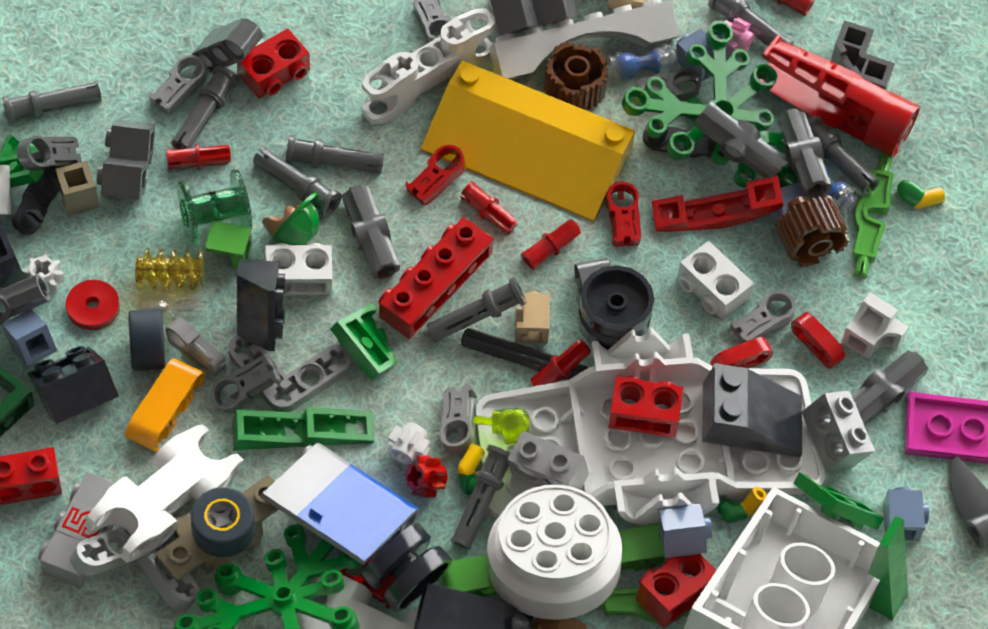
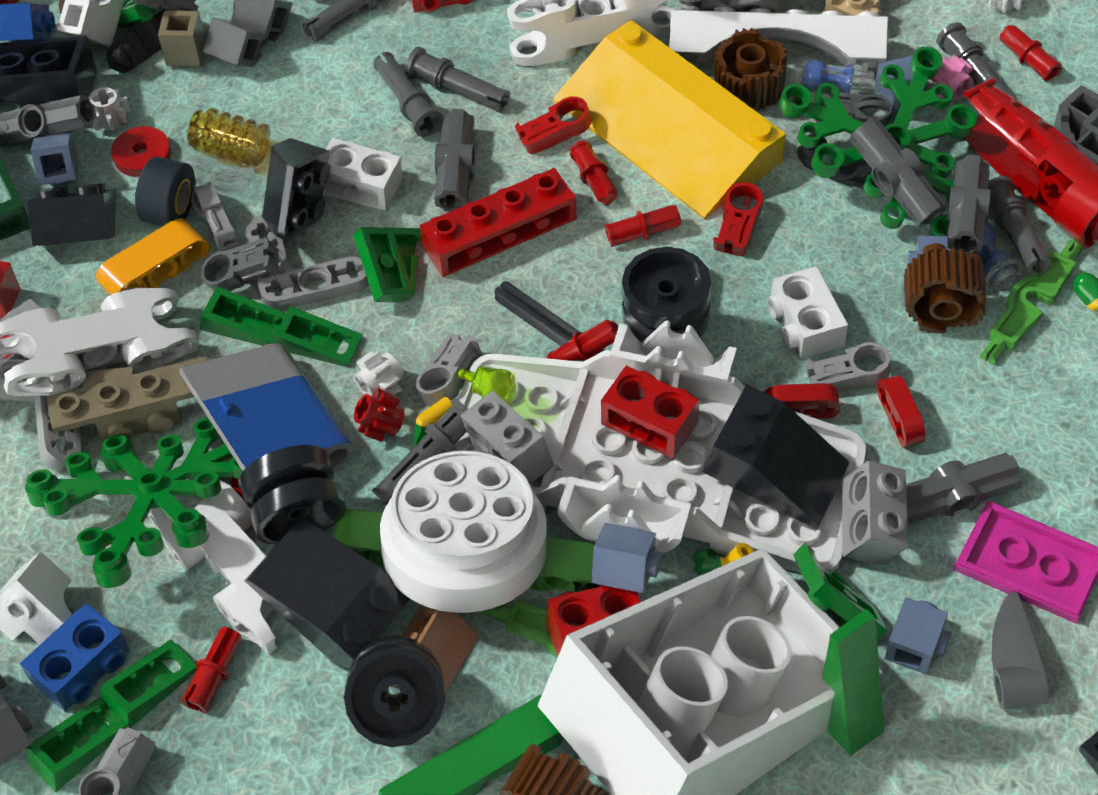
camera: 30 degrees right, 5 degrees down
(198, 156) = (320, 45): red axle -> none
(214, 206) = (302, 89): clear green hose -> none
(219, 509) = (120, 382): black wheel -> none
(230, 241) = (304, 125): bright green panel -> none
(297, 225) = (379, 125): green piece -> none
(490, 304) = (536, 256): dark grey pin -> none
(533, 319) = (581, 292): tan brick -> none
(720, 210) = (848, 245): red slope -> none
(874, 327) = (974, 415): white brick -> none

